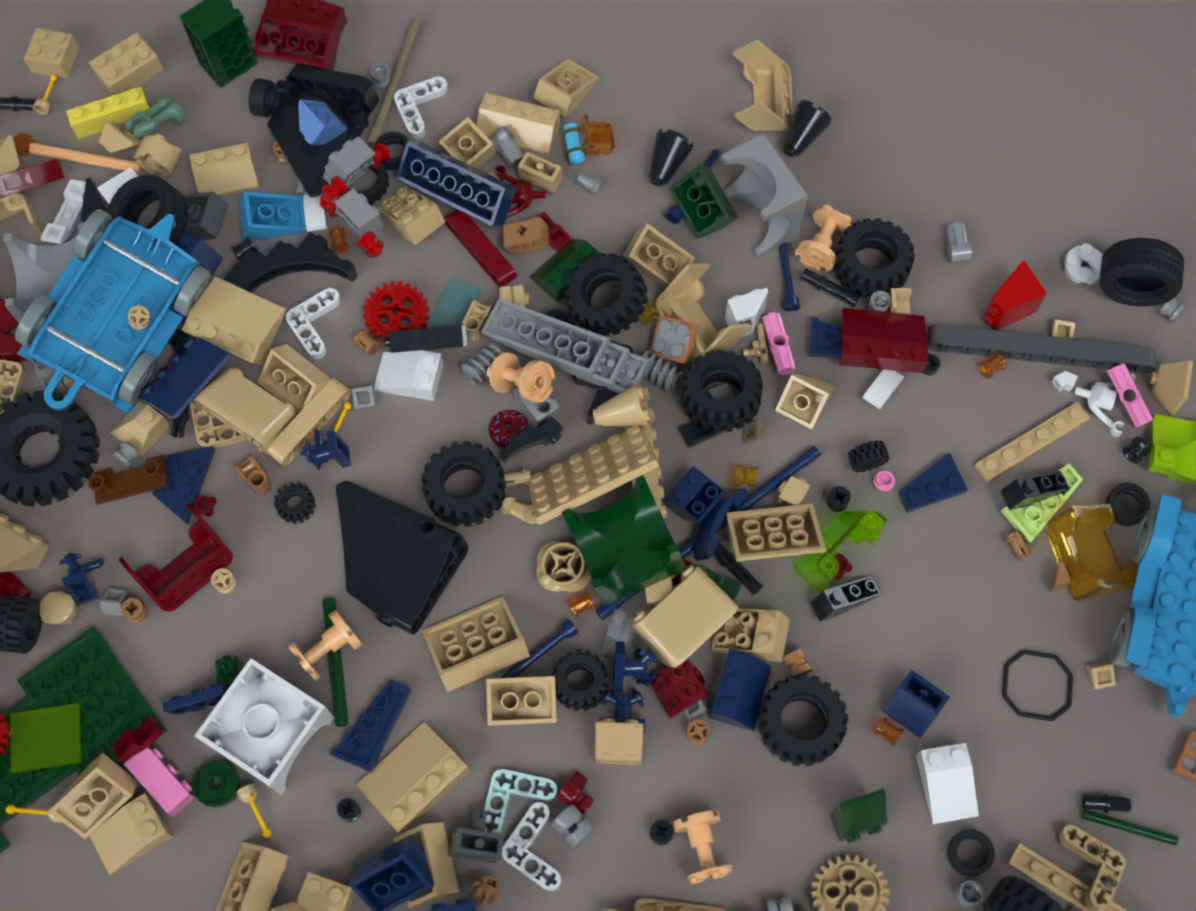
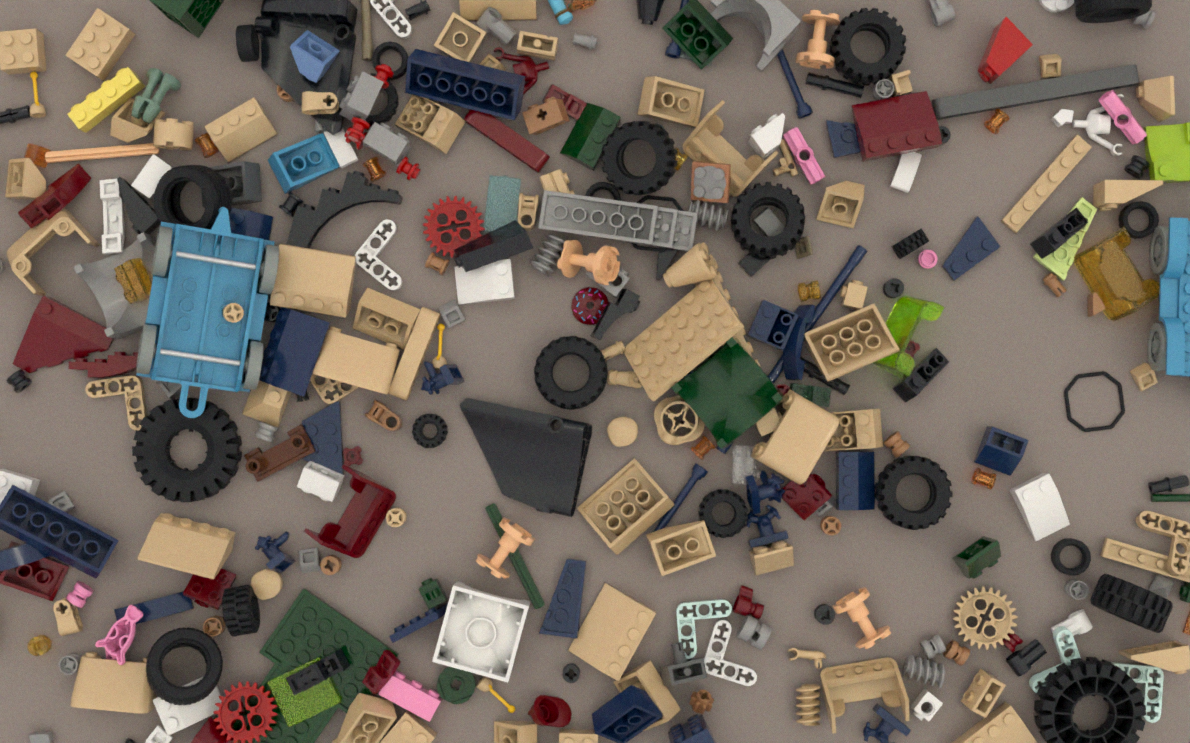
camera: 15 degrees left, 20 degrees up
(54, 264) = (134, 280): none -> clear yellow brick
(69, 716) = (318, 671): none -> black slope
(159, 519) = (320, 481): none -> white brick
(186, 176) = (206, 145): none -> clear orange bush
(306, 161) = (316, 103): none -> tan piece
(308, 846) = (550, 711): none -> dark red piece
(438, 115) = (418, 10): none -> black pin
(498, 560) = (622, 431): none -> tan hair
(633, 877) = (817, 656): none -> tan piece
(1113, 466) = (1112, 193): none -> tan slope

